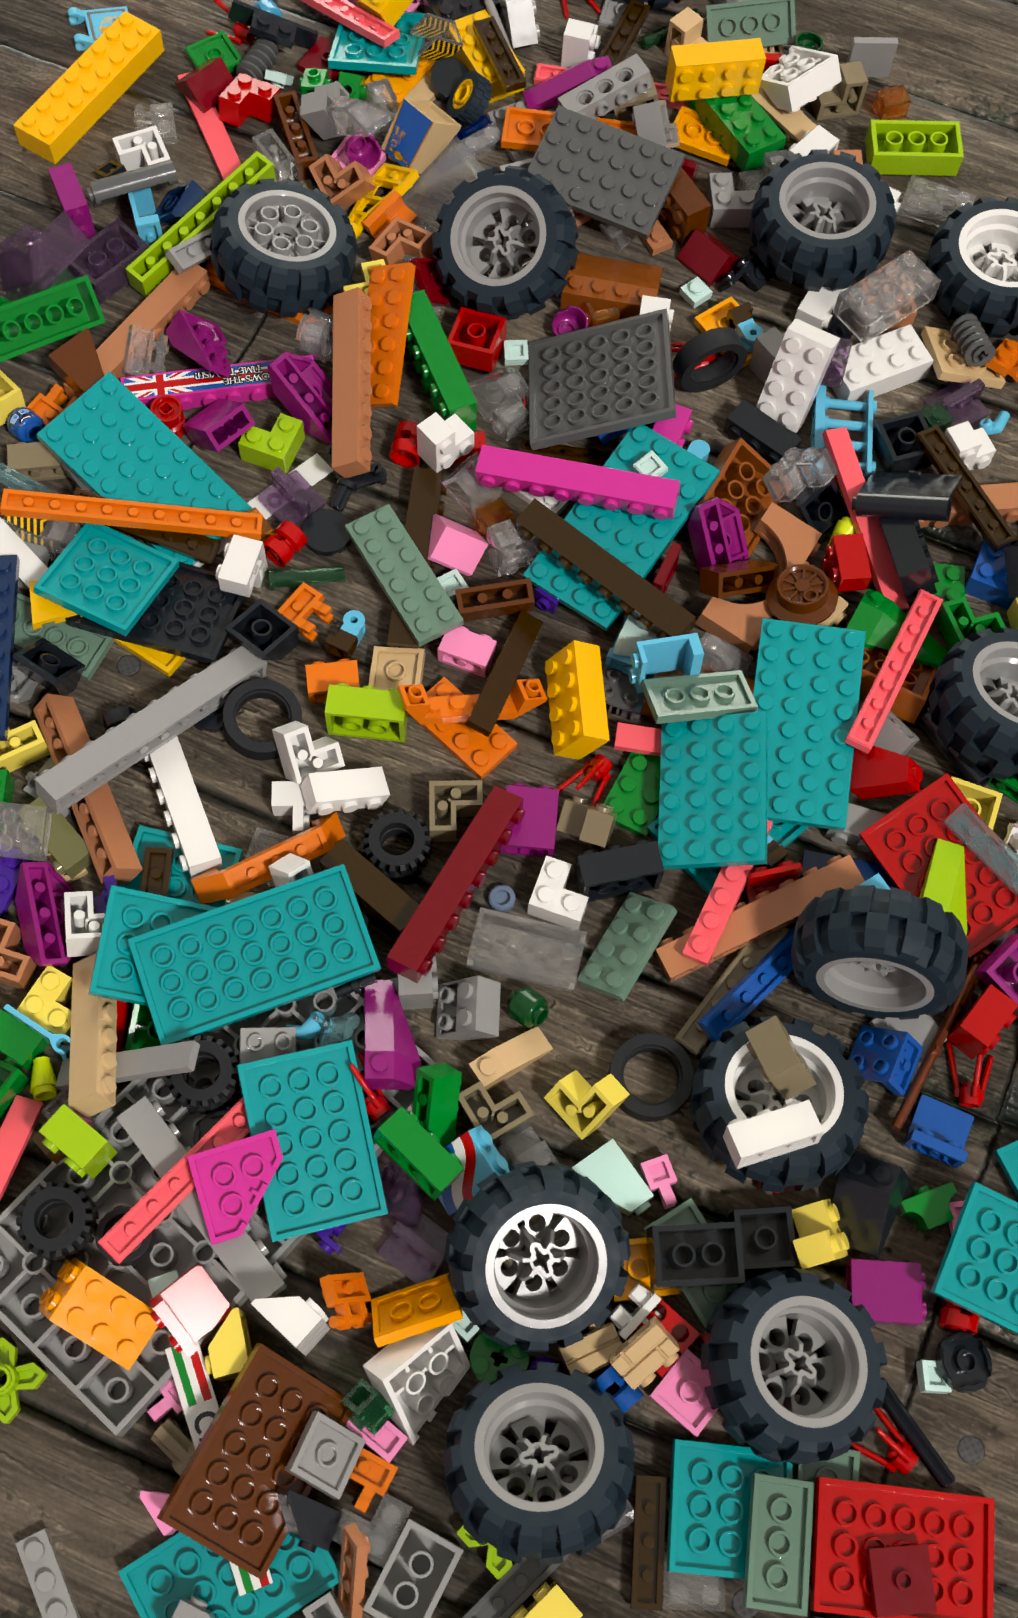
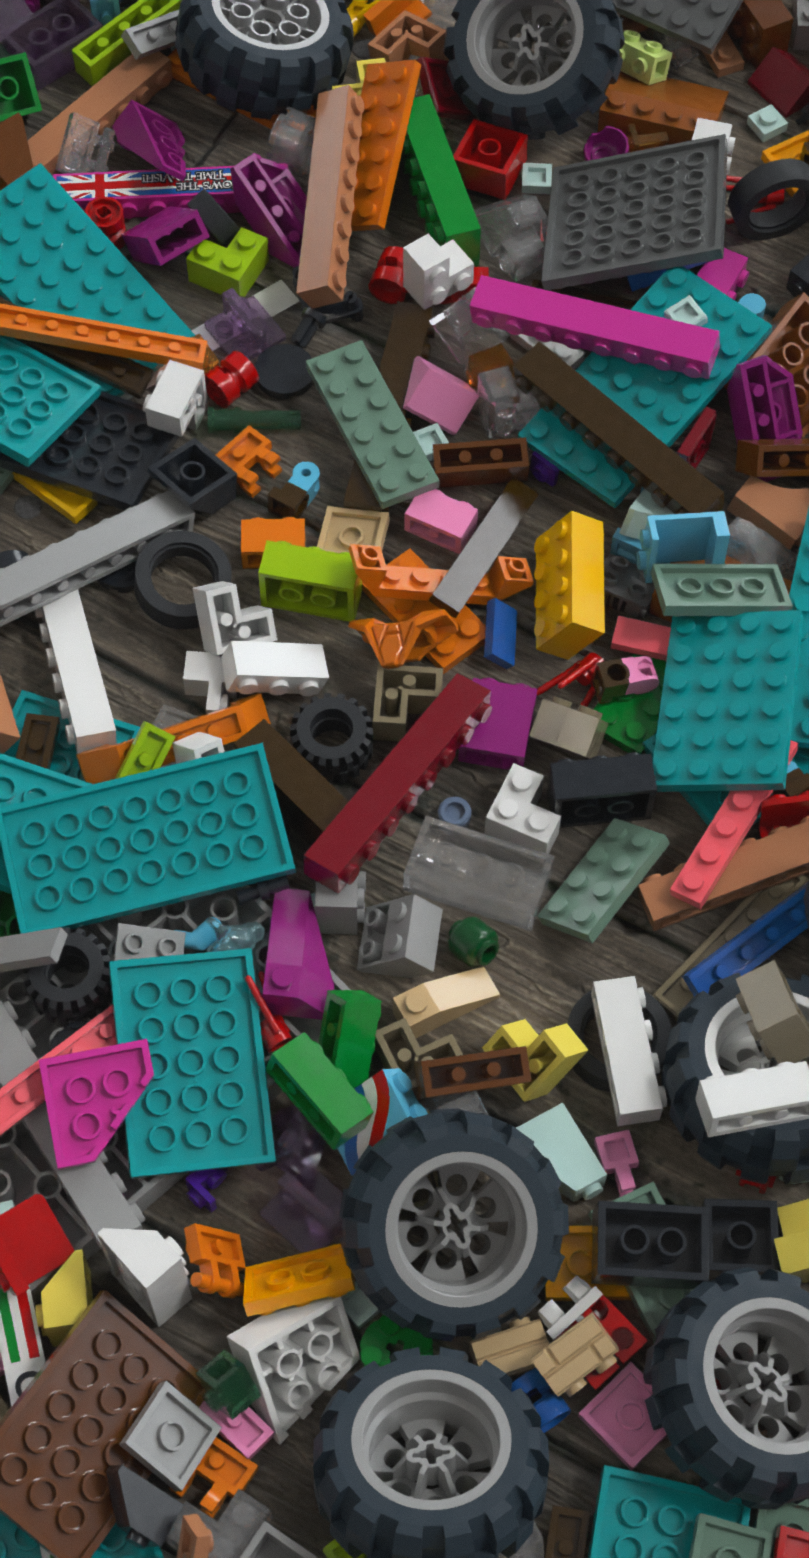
camera: 10 degrees right, 5 degrees down
(247, 877) = (146, 751): none -> lime plate
(257, 406) = (214, 217): none -> black tyre
(445, 760) = (408, 639): none -> orange piece
(524, 743) = (500, 633): none -> blue tile
(540, 1125) = (472, 1072): none -> reddish brown brick
(594, 245) = (644, 58): none -> yellowish green brick
(627, 775) = (623, 678): none -> leg
(660, 1091) = (627, 1051): none -> white brick

